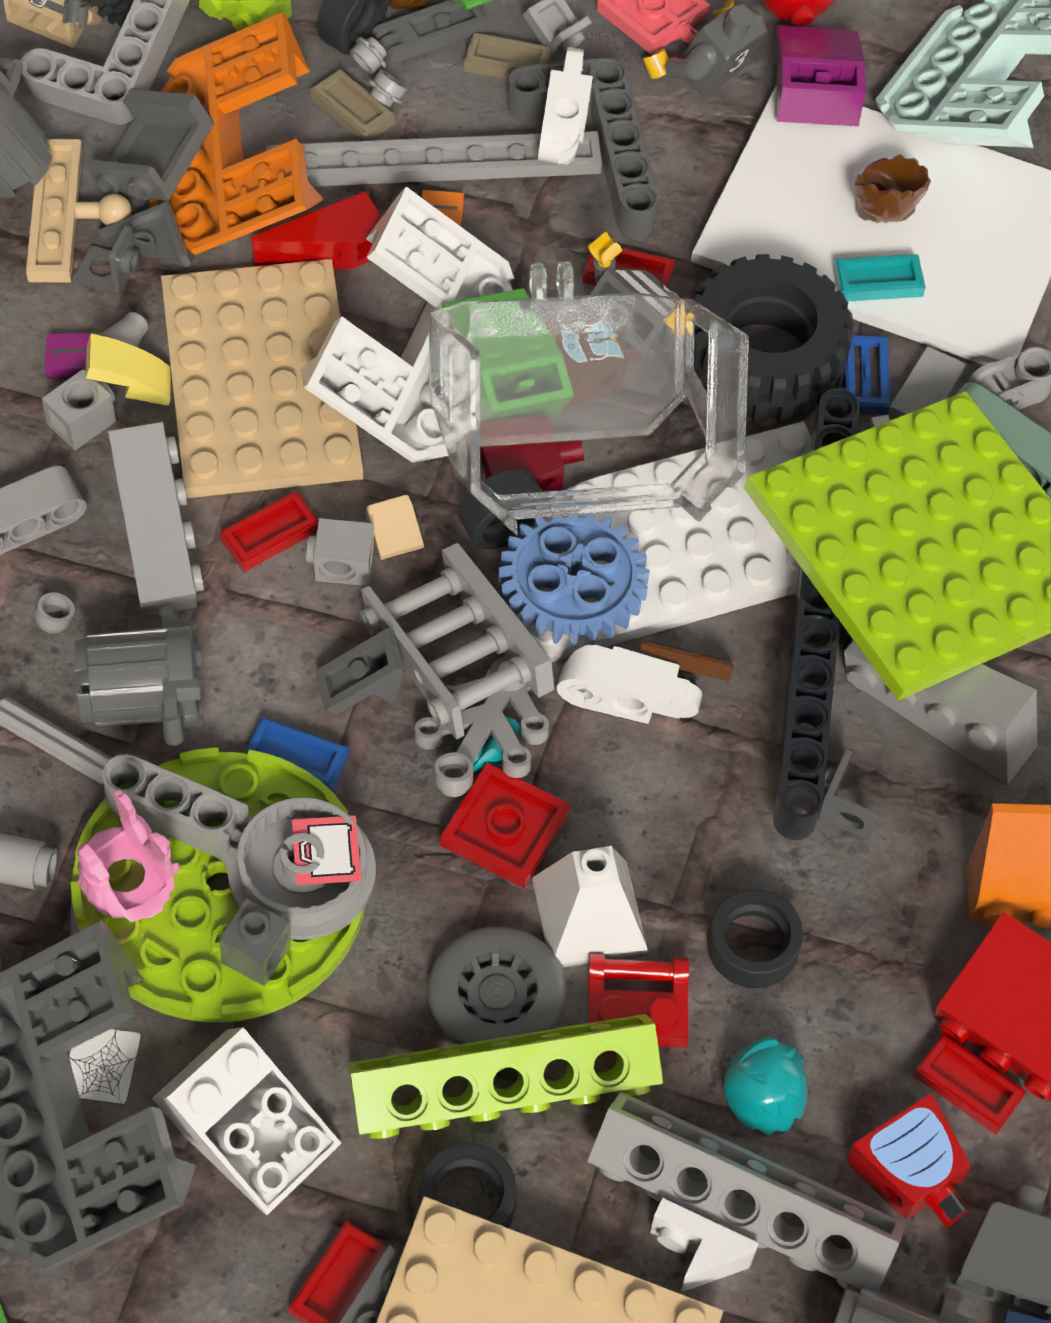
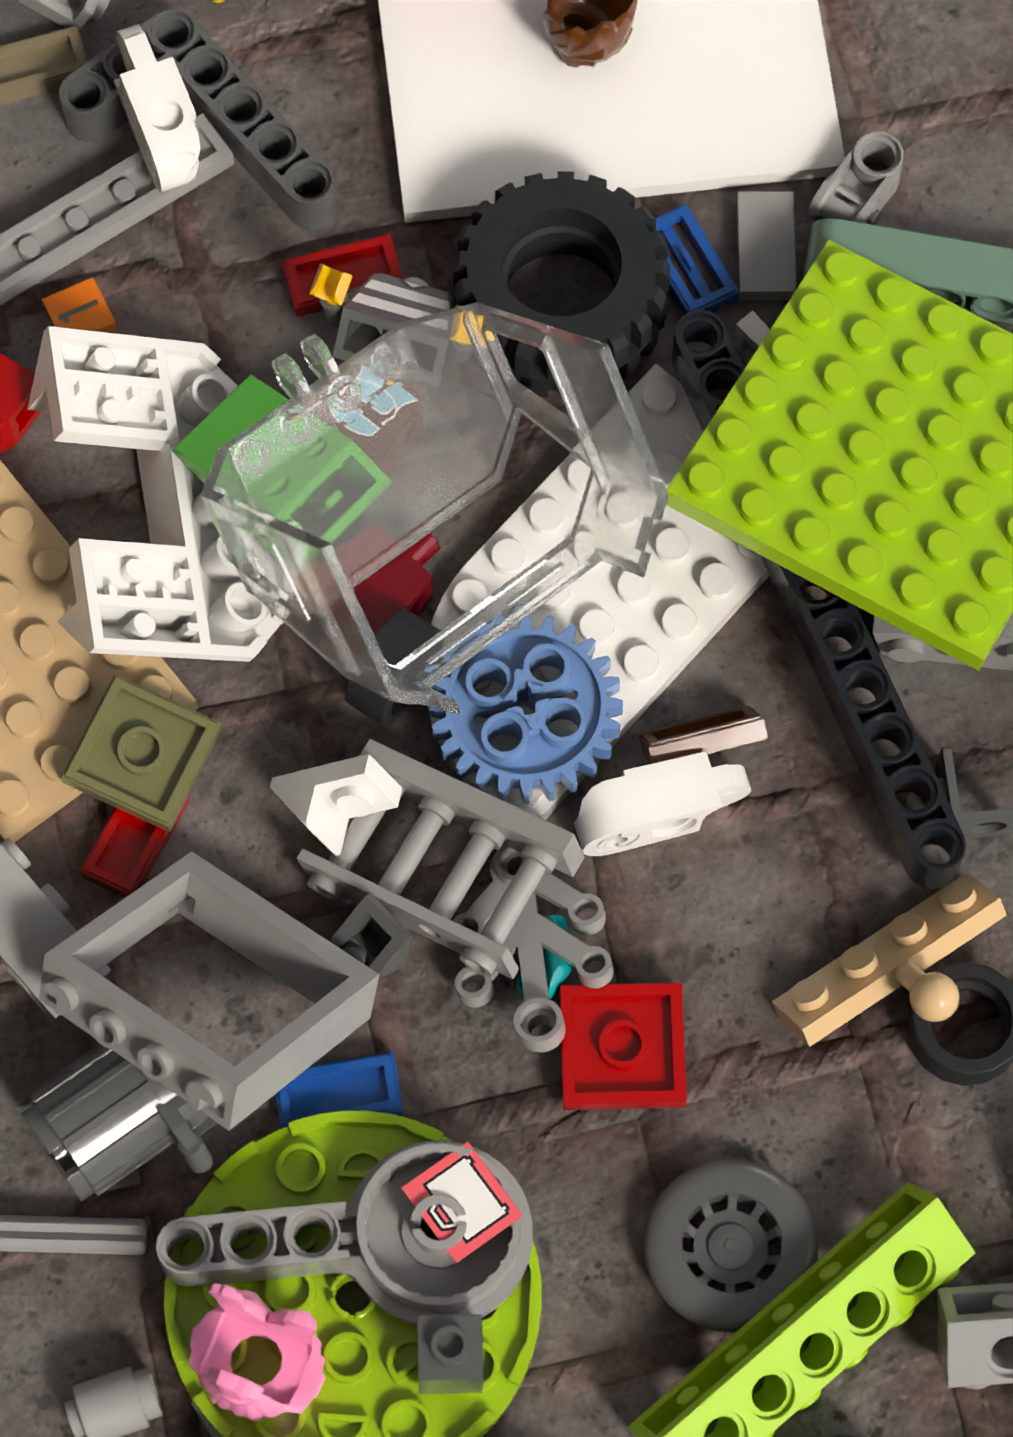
camera: 25 degrees left, 10 degrees up
(304, 477) = (141, 752): none -> olive plate
(330, 673) = (251, 926): none -> light grey window
(342, 552) = (238, 818): light grey brick -> none
(394, 527) = (275, 749): tan slope -> none
(413, 563) = (336, 792): none -> white slope
(589, 907) = (771, 1096): white slope -> none
(665, 1009) = (919, 1162): red plate -> none
(729, 868) = (894, 959): none -> tan plate
(879, 277) = (636, 134): teal tile -> none

